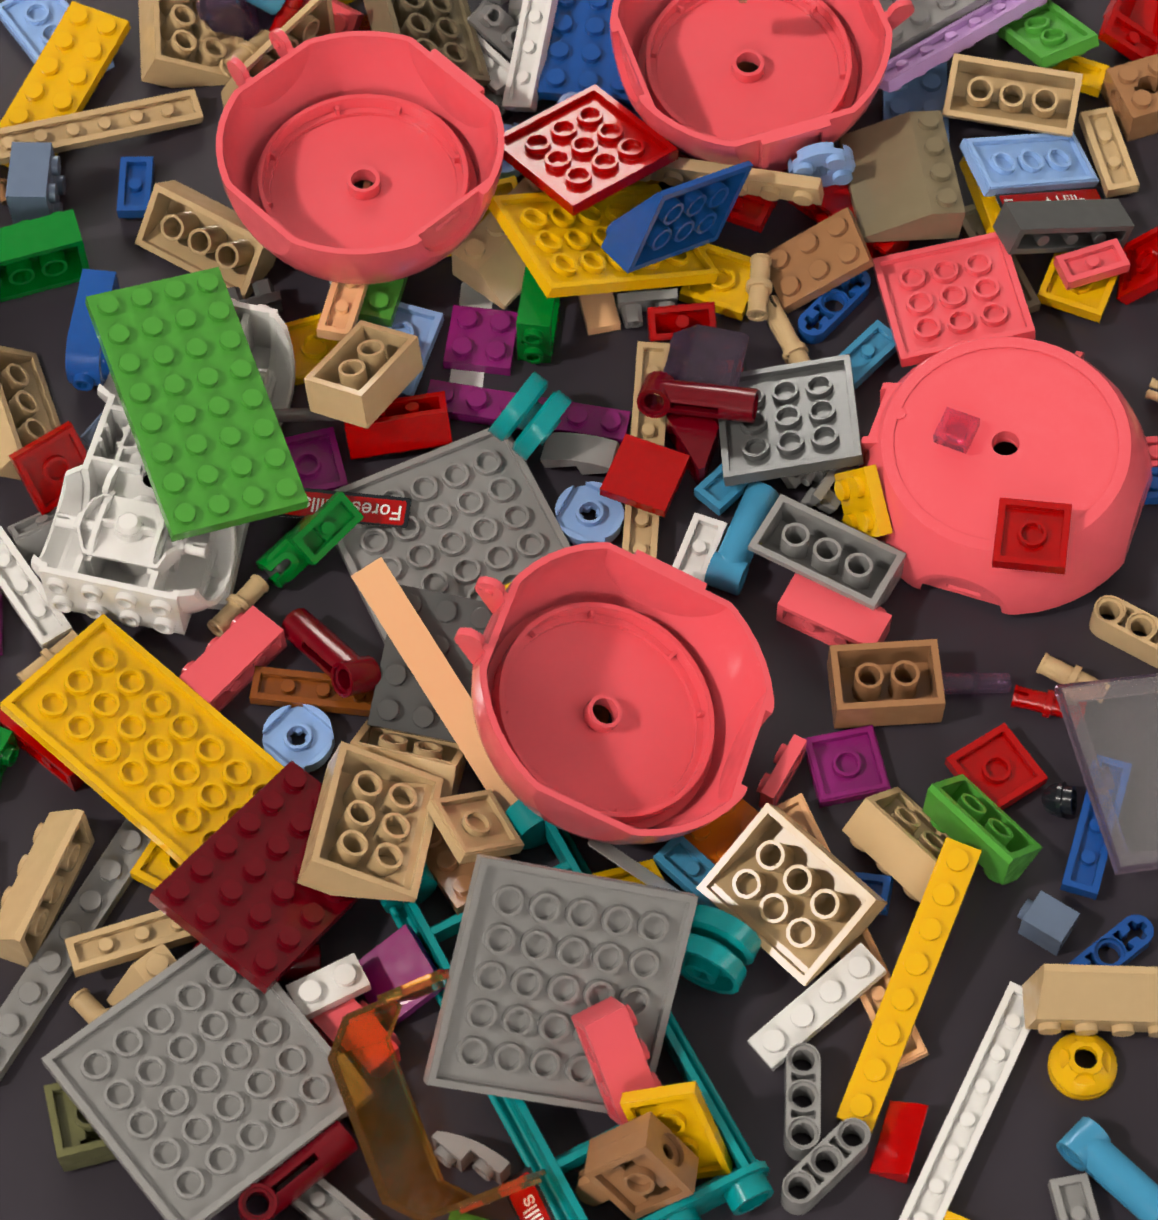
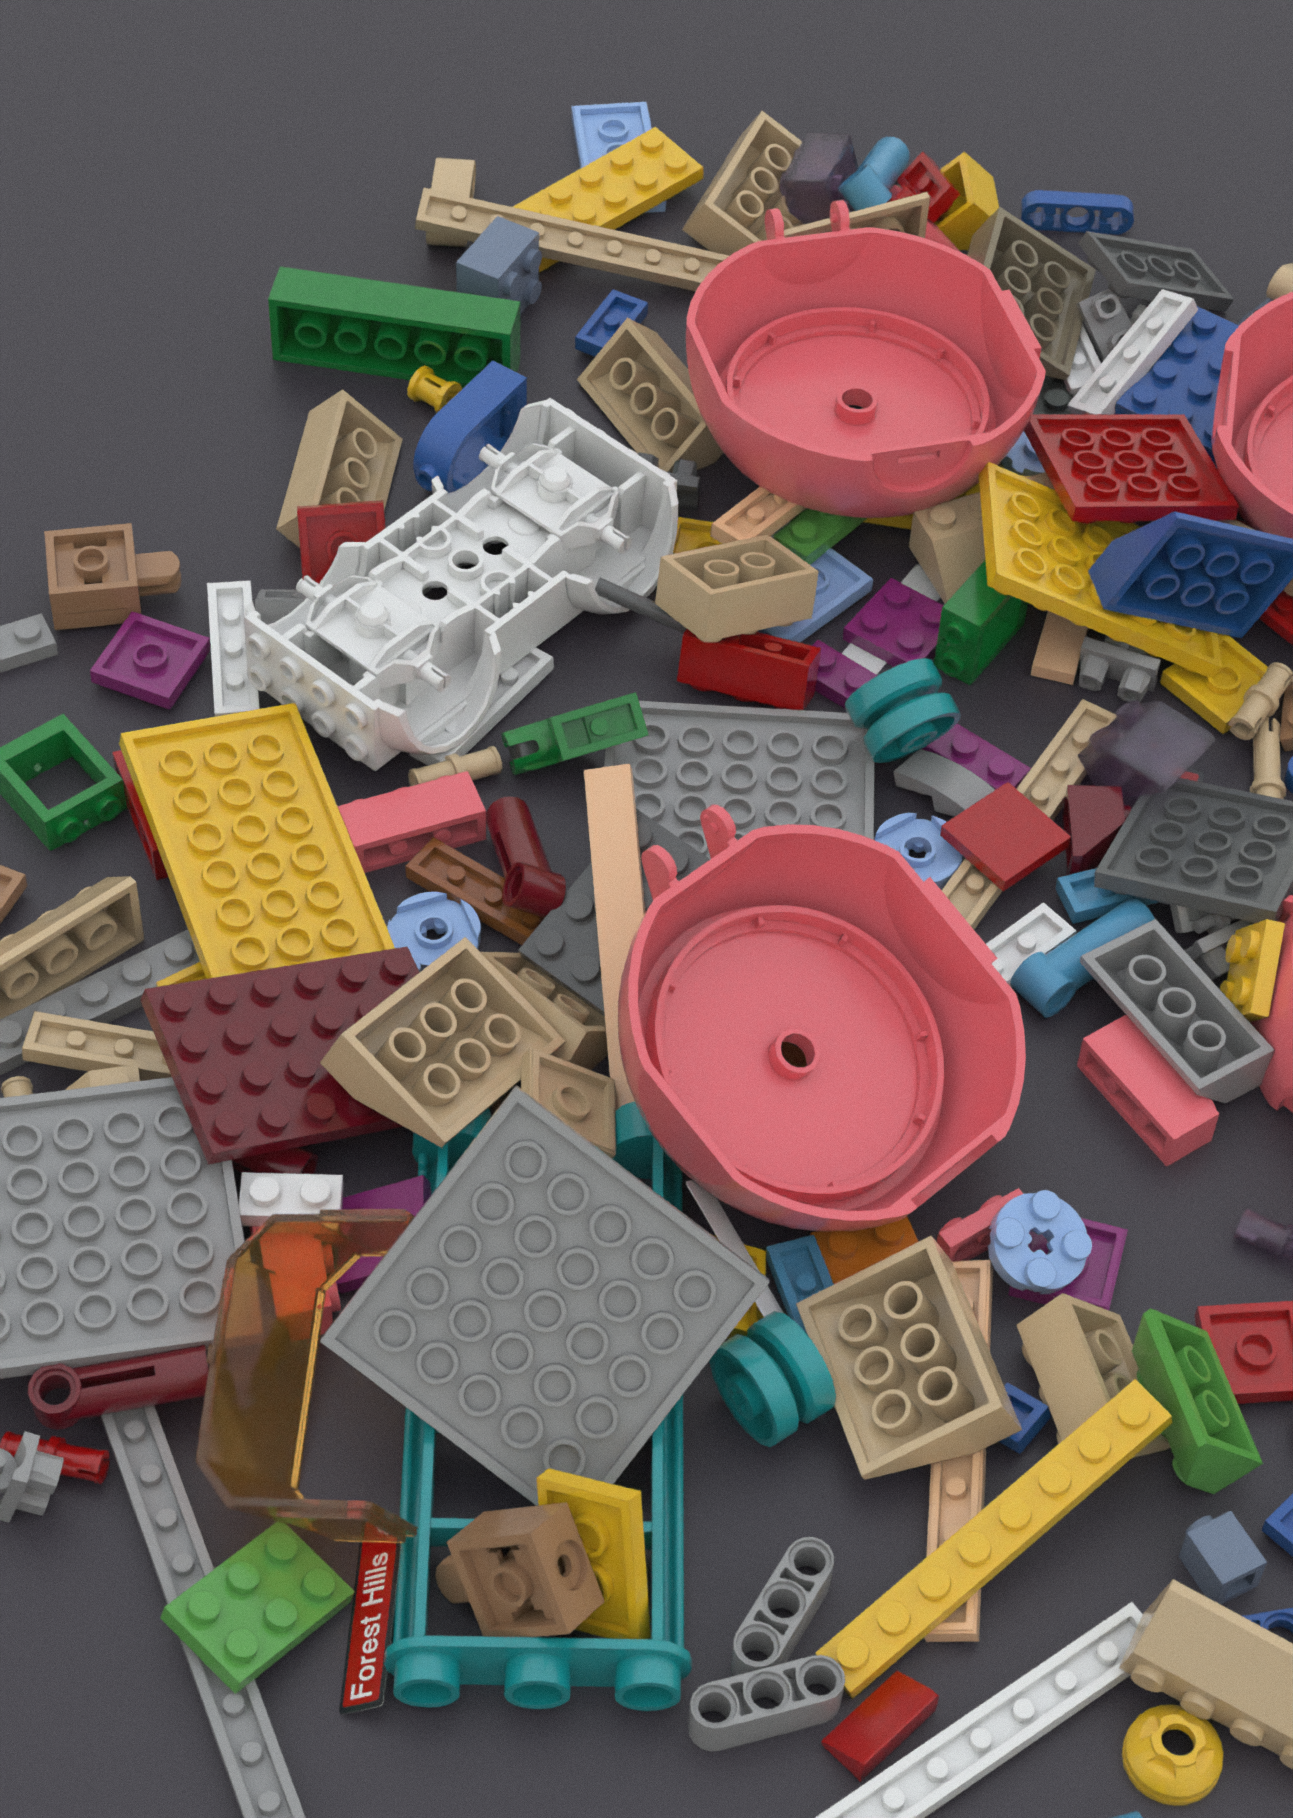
camera: 25 degrees right, 10 degrees down
(38, 303) = (431, 389): none -> yellow bush
(196, 403) = (523, 531): bright green plate -> none
(318, 459) = (622, 662): magenta plate -> none
(376, 509) = (665, 735): sticker -> none
(461, 1151) = (336, 1464): light grey slope -> none
(614, 1052) = (570, 1414): coral brick -> none
(669, 319) = (1129, 685): red slope -> none
(696, 399) = (1112, 777): dark red piece -> none
(809, 773) = (1061, 1227): none -> light blue plate
(817, 1006) = (871, 1510): white plate -> none
(885, 683) = (1167, 1187): medium nougat brick -> none

